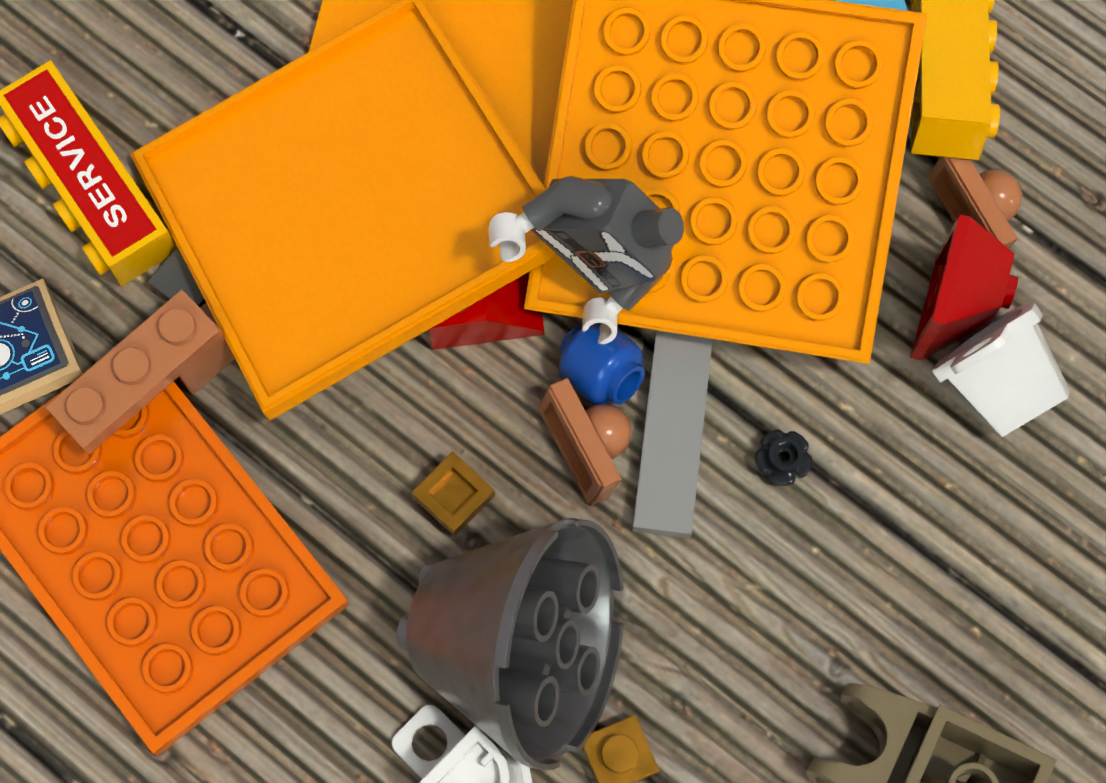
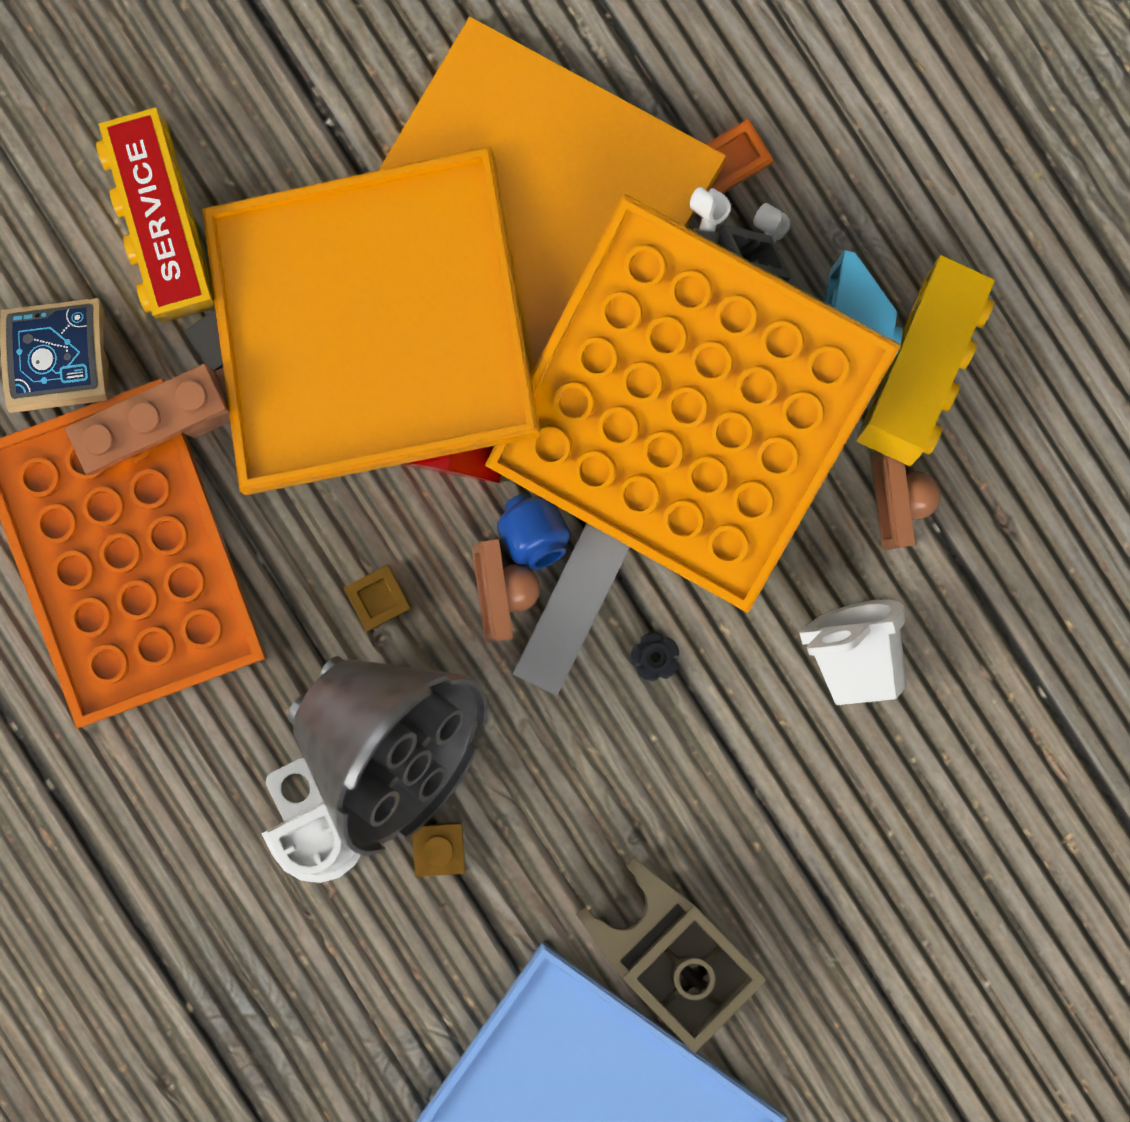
camera: 15 degrees right, 15 degrees up
(604, 233) = (555, 442): dark grey torso -> none
(965, 287) = (855, 571): red slope -> none

